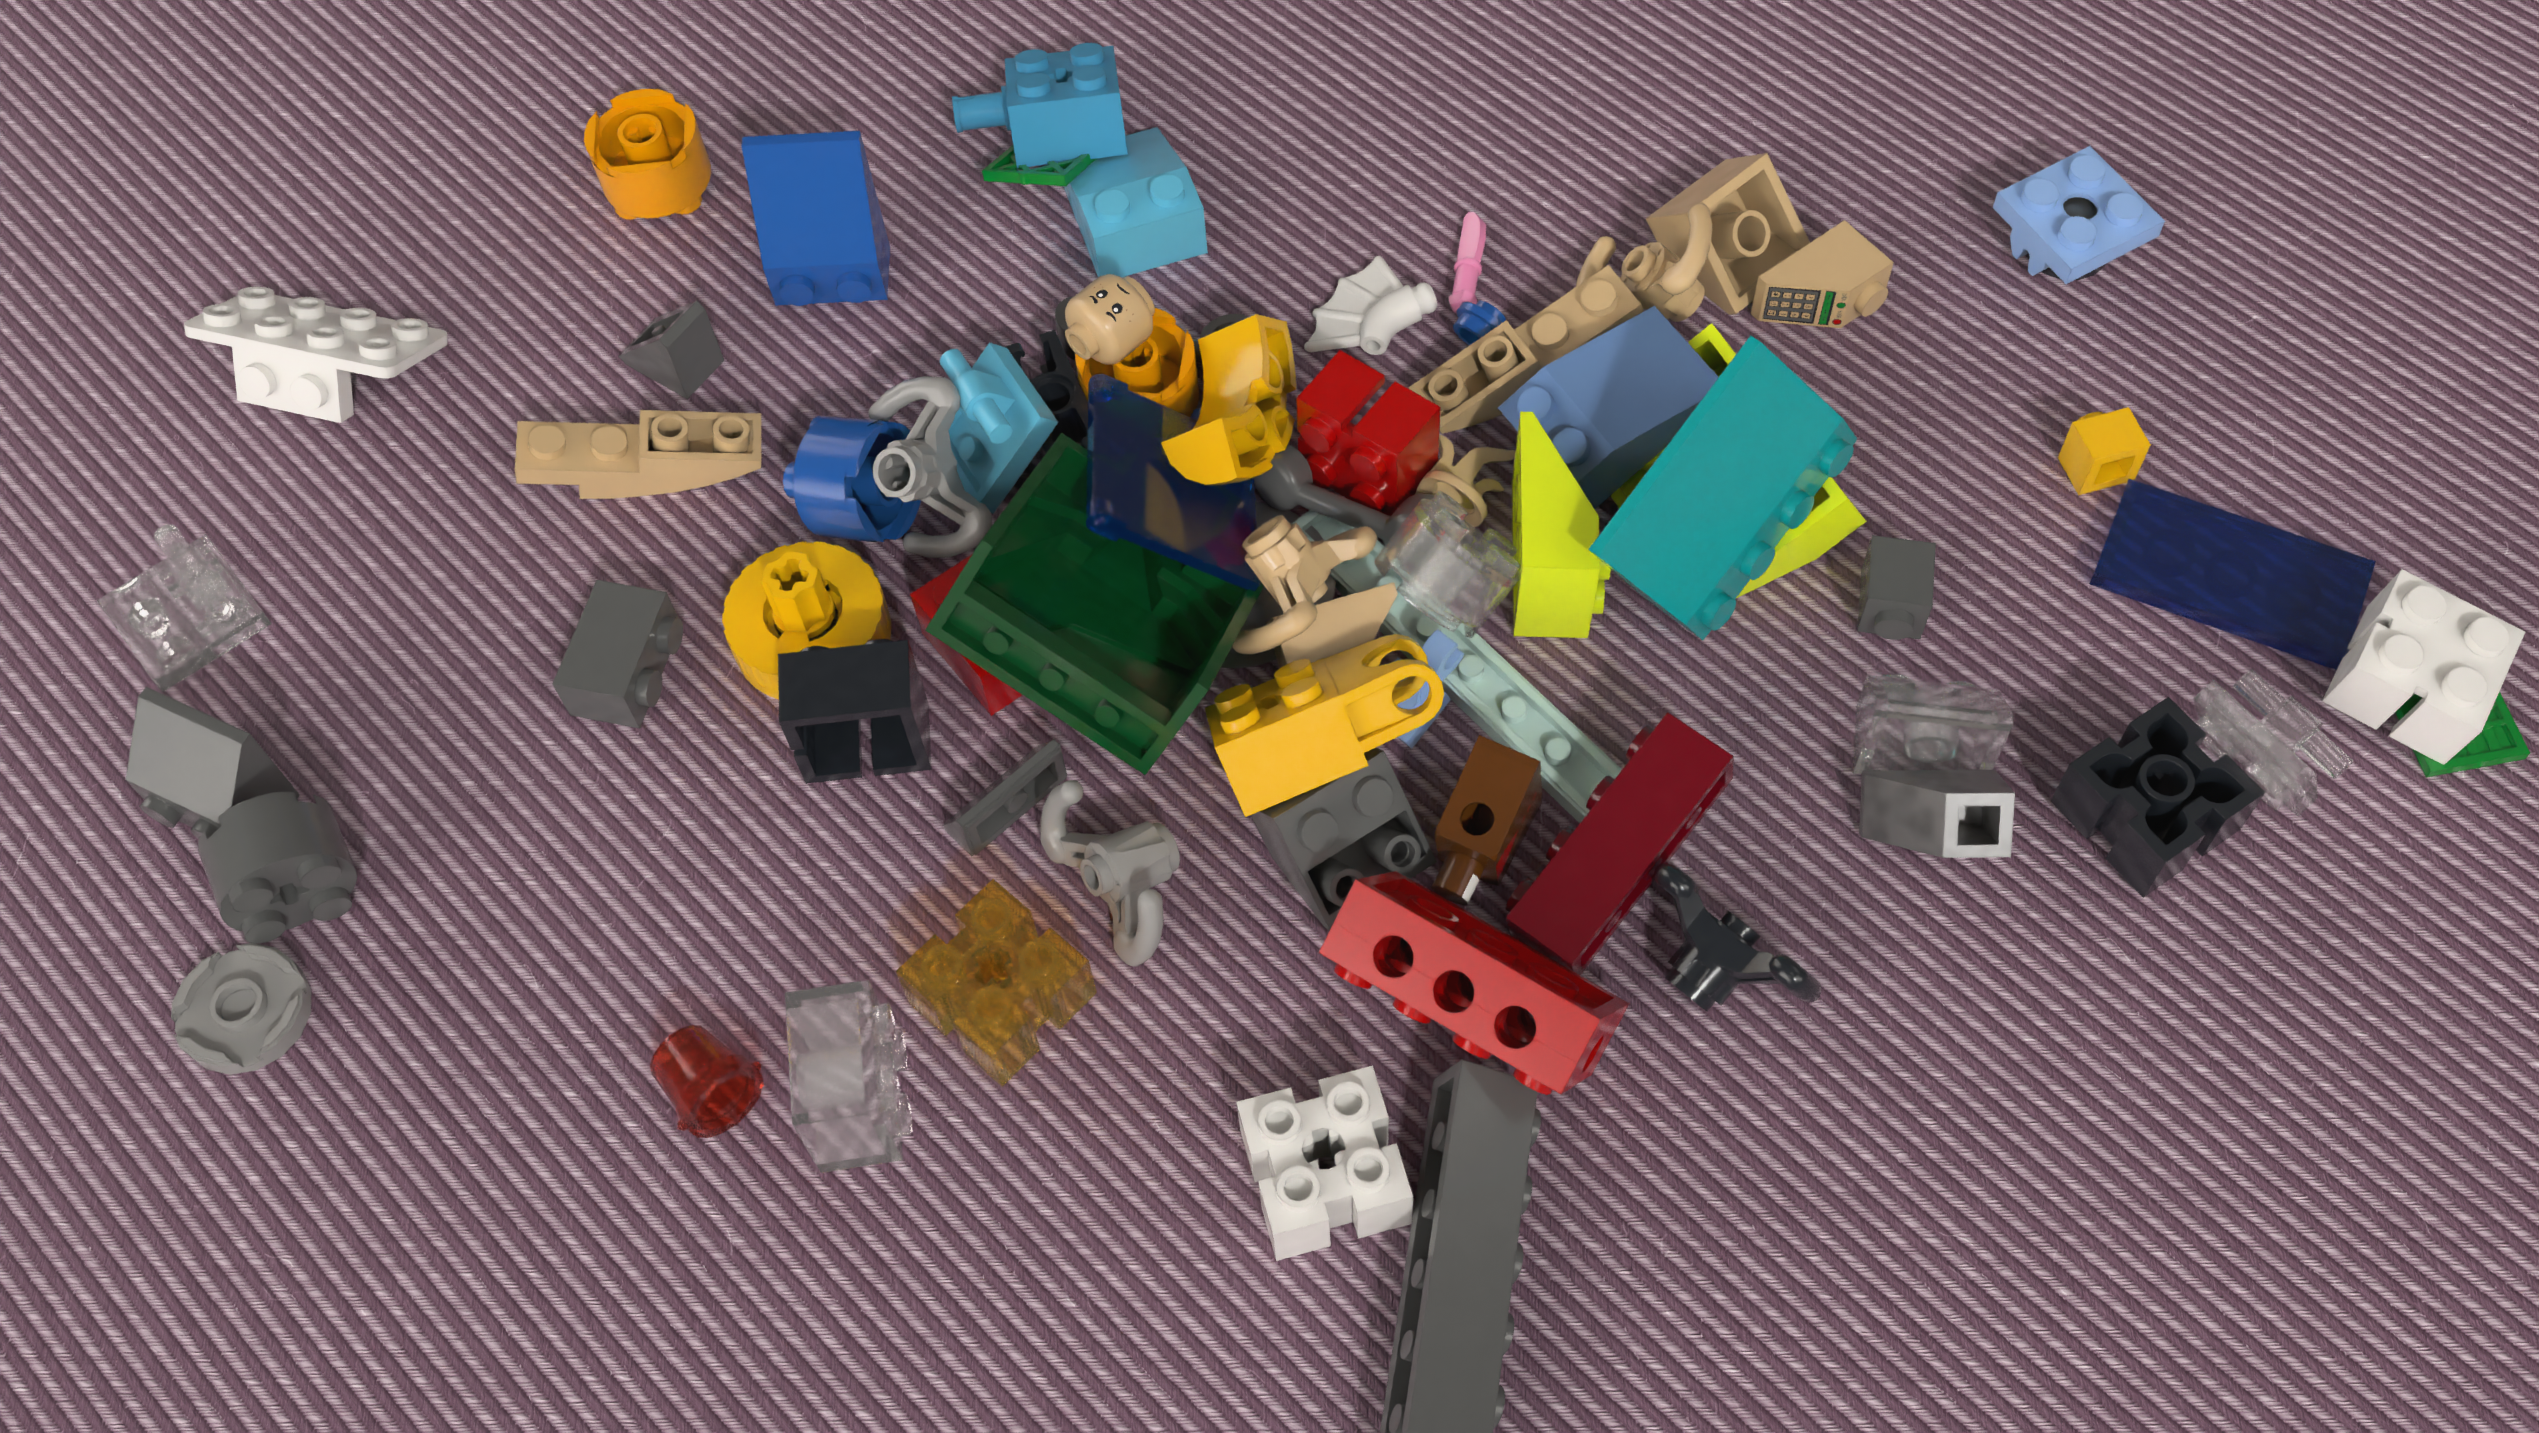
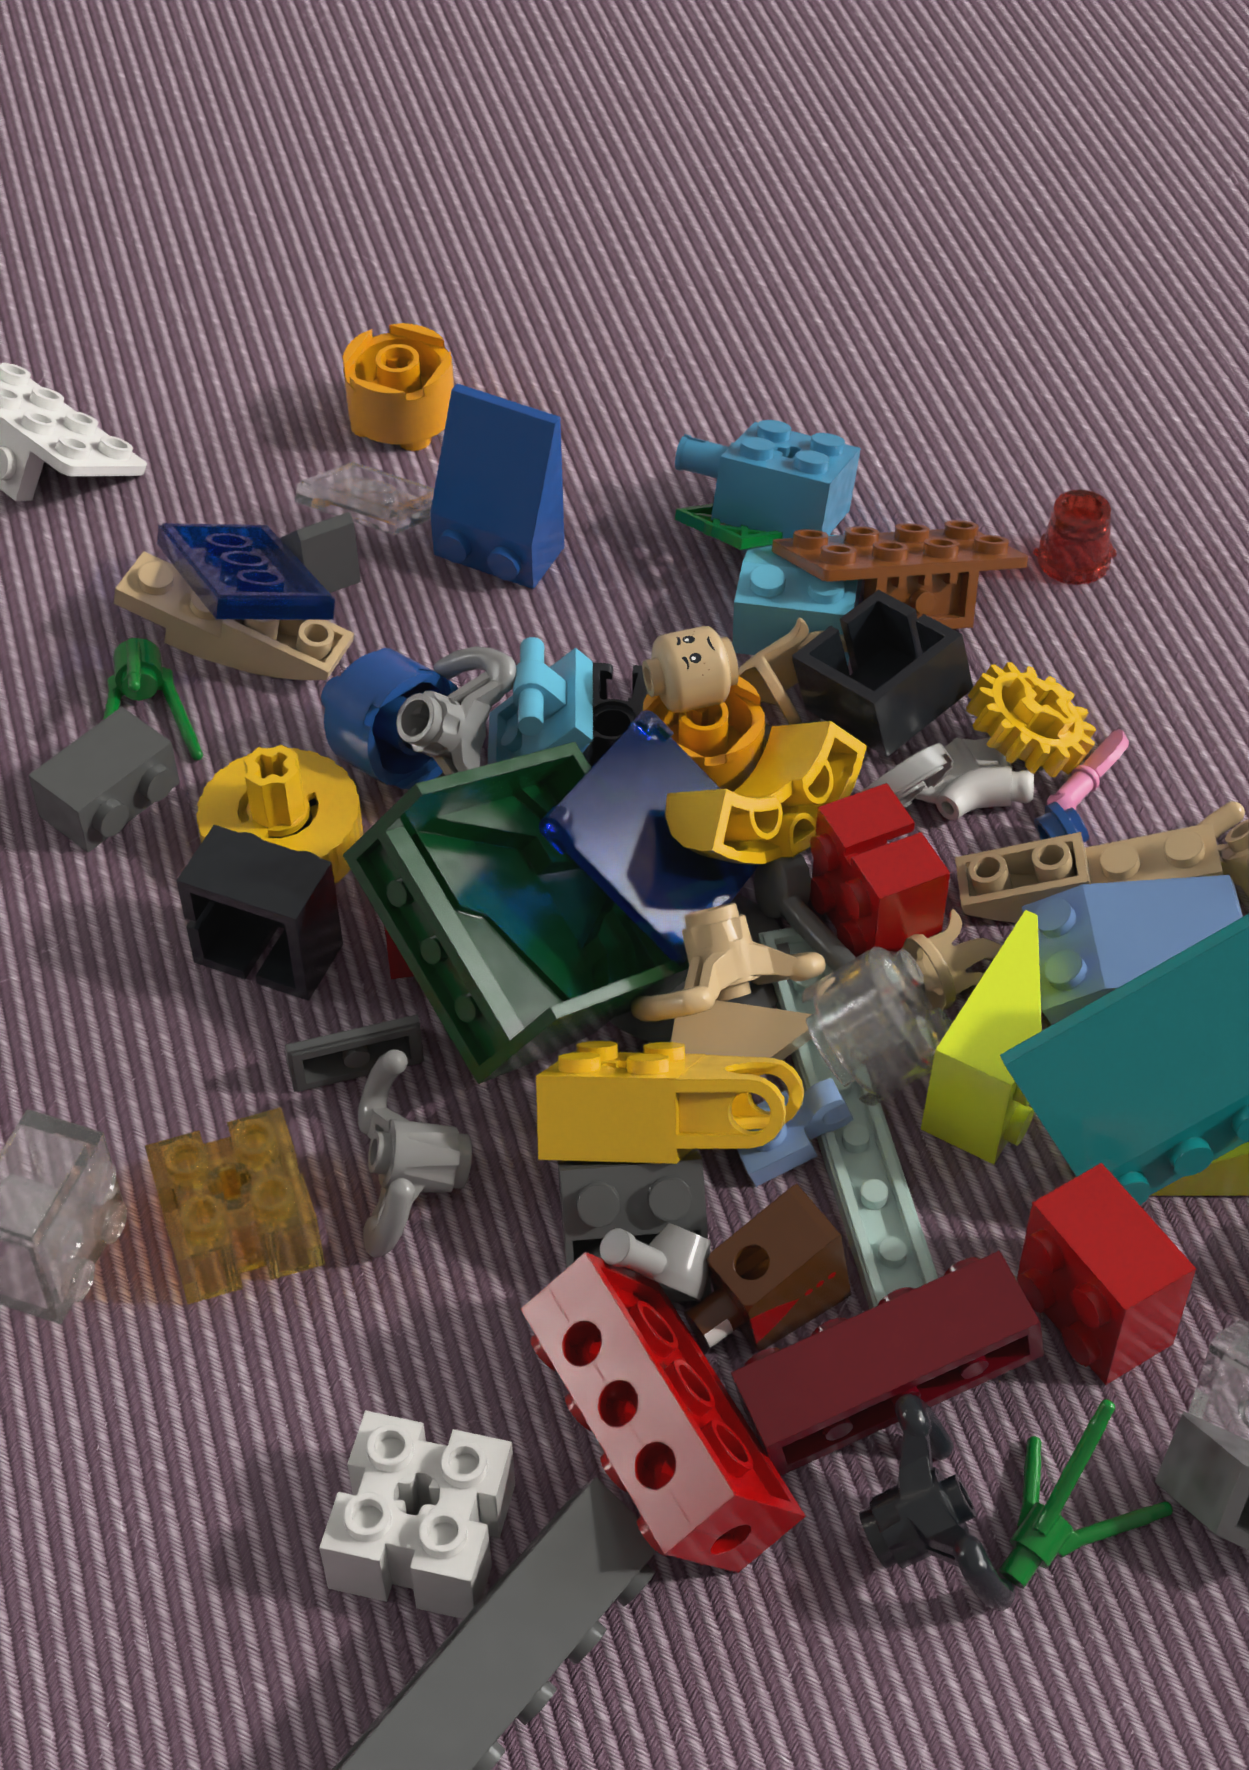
camera: 25 degrees right, 10 degrees down
(585, 543) = (139, 676): none -> green plant
(629, 400) = (244, 572): none -> clear blue tile
(686, 273) = (370, 496): none -> clear tile
(1169, 267) = (773, 670): none -> tan piece
(1227, 138) = (916, 565): none -> dark orange bracket
(1264, 264) = (901, 675): none -> black piece
(1338, 53) = (1077, 539): none -> clear red piece
(1341, 335) = (906, 778): none -> light grey tile
(1400, 236) = (1030, 719): none -> yellow gear
(1403, 847) = (672, 1258): none -> light grey bar
(1745, 687) = (1103, 1274): none -> red brick
(1809, 919) = (1042, 1529): none -> green plant

